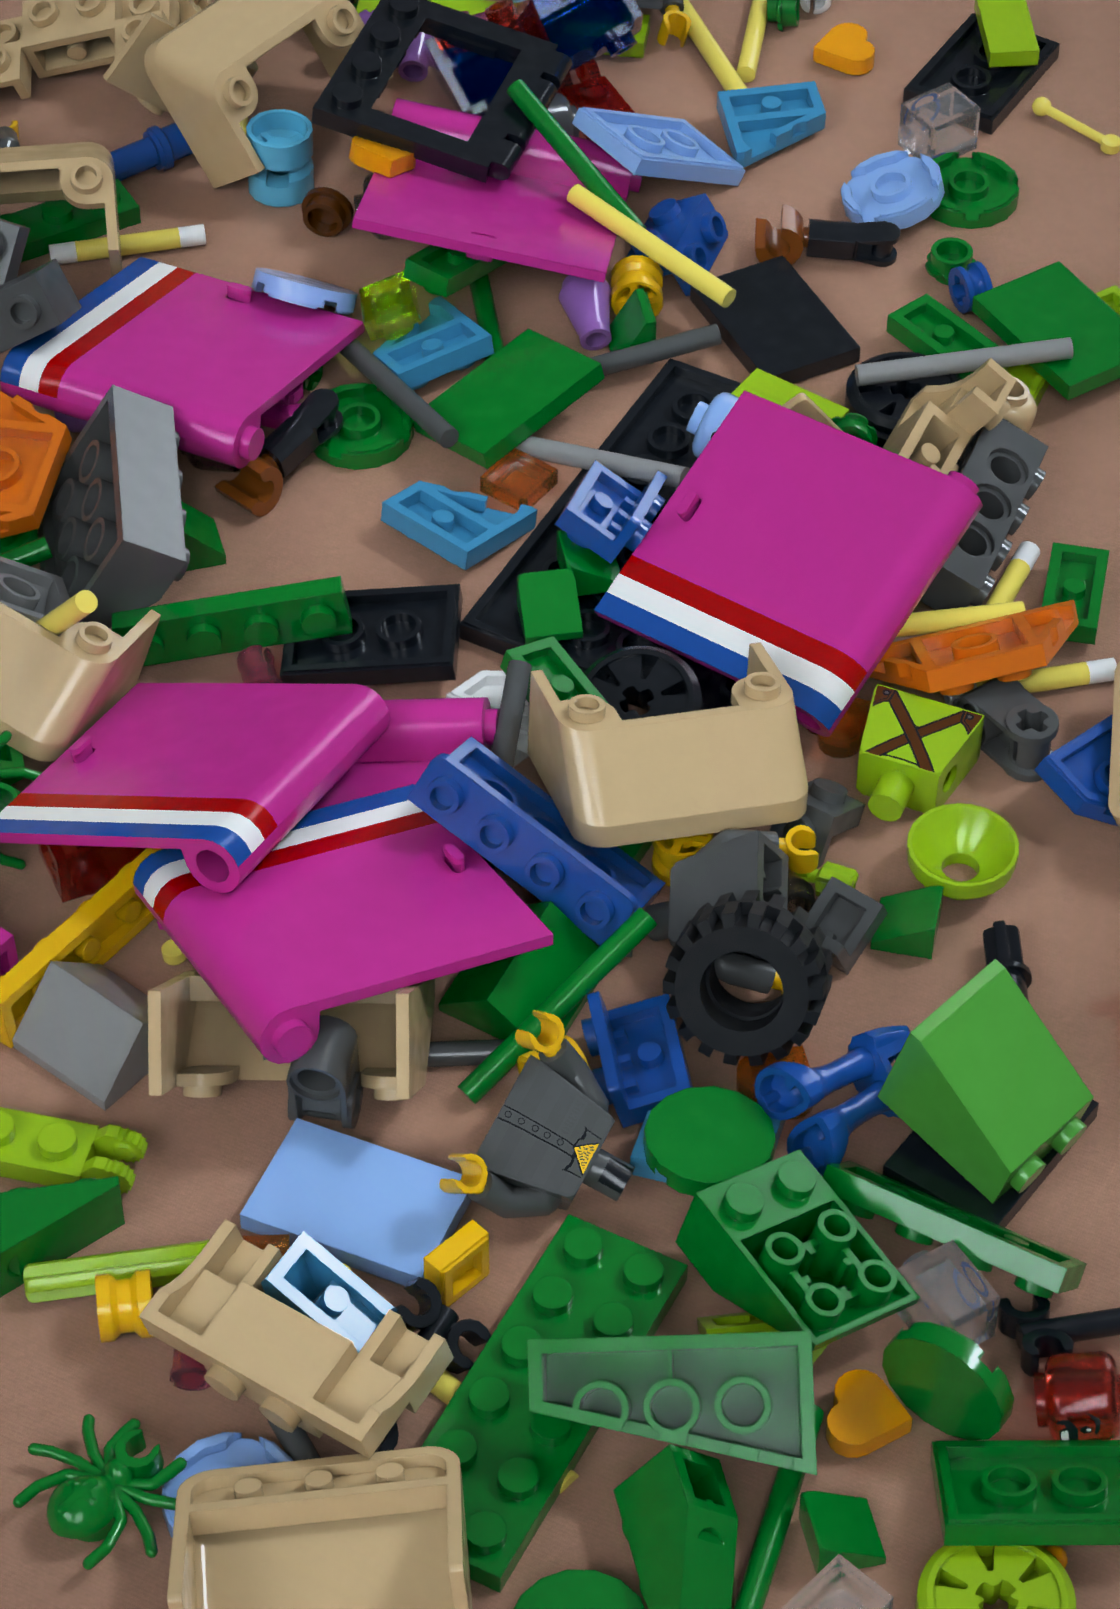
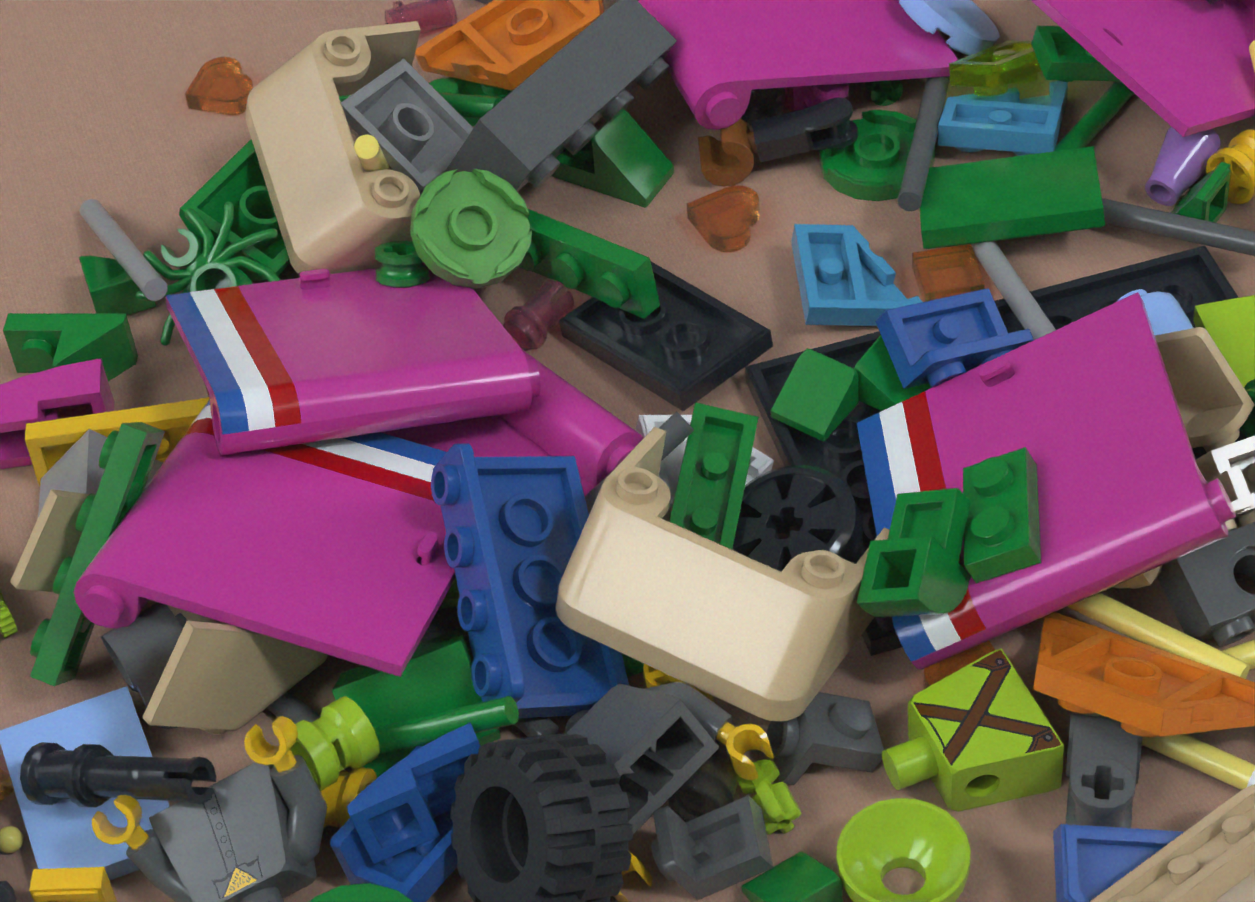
camera: 50 degrees right, 0 degrees up
(136, 697) = (400, 265): none -> green bush
(176, 634) = (470, 228): none -> bright green tile
(211, 1044) = (127, 465): none -> green plate
(306, 532) = (726, 217): none -> clear orange tile
(390, 1169) = (94, 775): none -> black pin
(545, 997) = (336, 741): none -> lime wheel
(630, 1024) = (402, 802): none -> blue slope
(797, 642) = (918, 563): none -> green brick
(817, 587) = (1002, 515): none -> green plate

